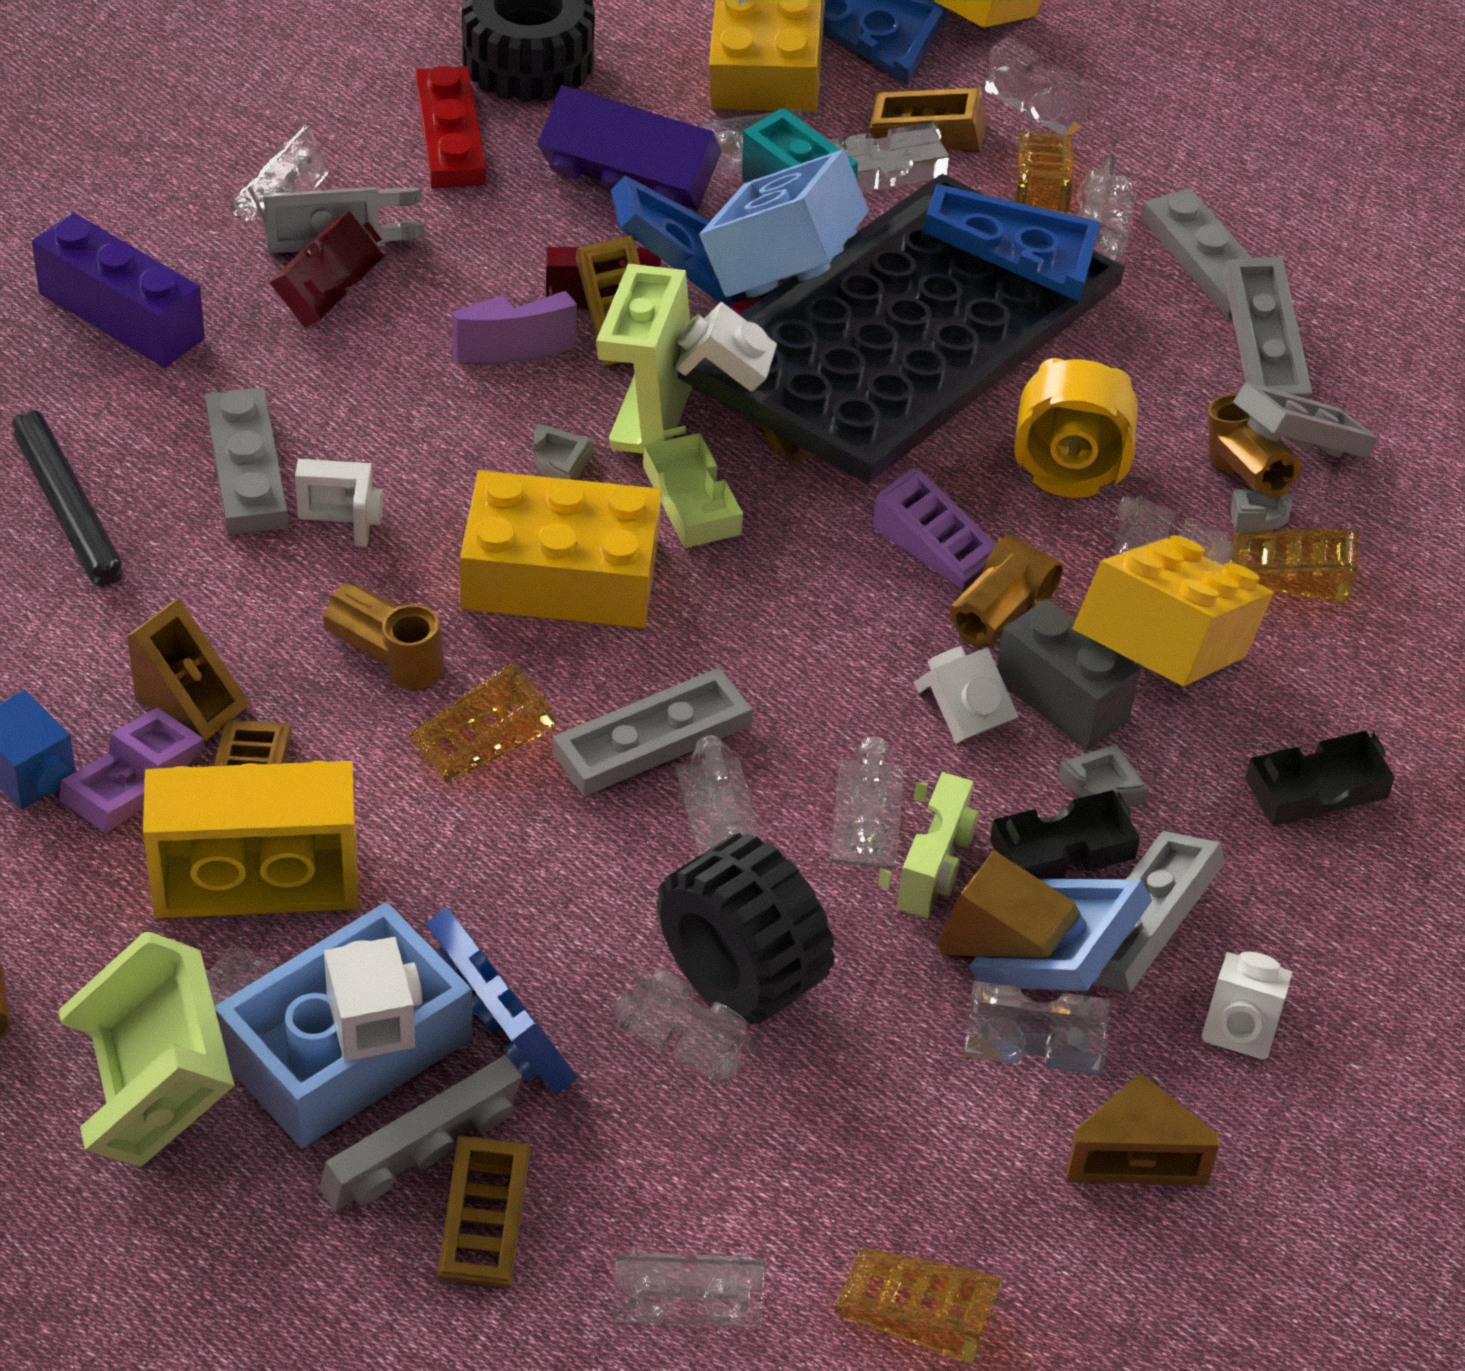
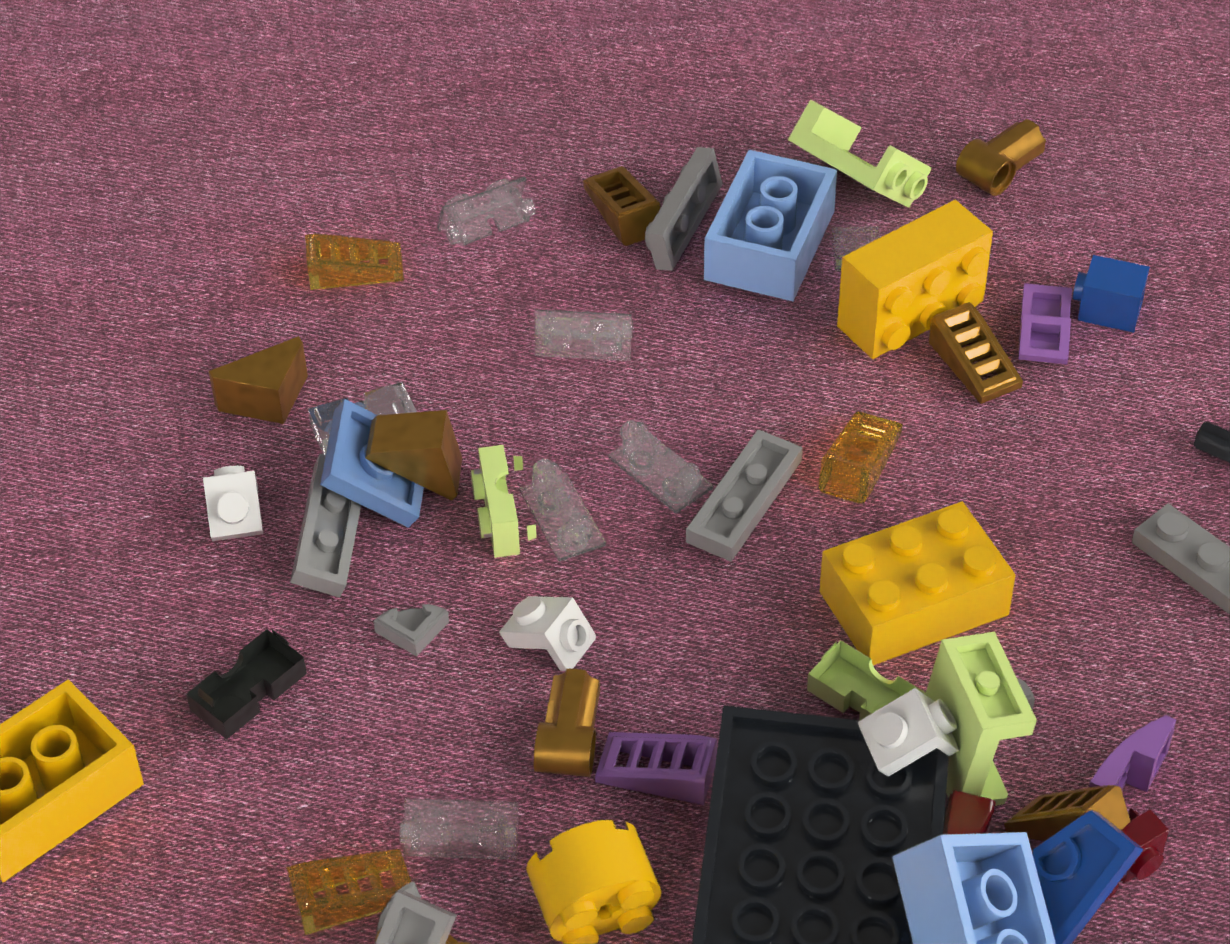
camera: 155 degrees right, 0 degrees up
(182, 672) = (1069, 379): pearl gold slope -> none
(339, 494) = (1109, 555): white bracket -> none
(372, 997) = (746, 181): white brick -> none
(400, 637) = (958, 467): pearl gold piece -> none
(499, 1006) = (694, 274): blue wing -> none
(745, 927) = (574, 349): black tyre -> none
(1066, 674) = (478, 666): dark grey brick -> none
(1088, 831) = (424, 543): pearl dark grey piece -> none
(1174, 609) = (412, 710): yellow brick -> none

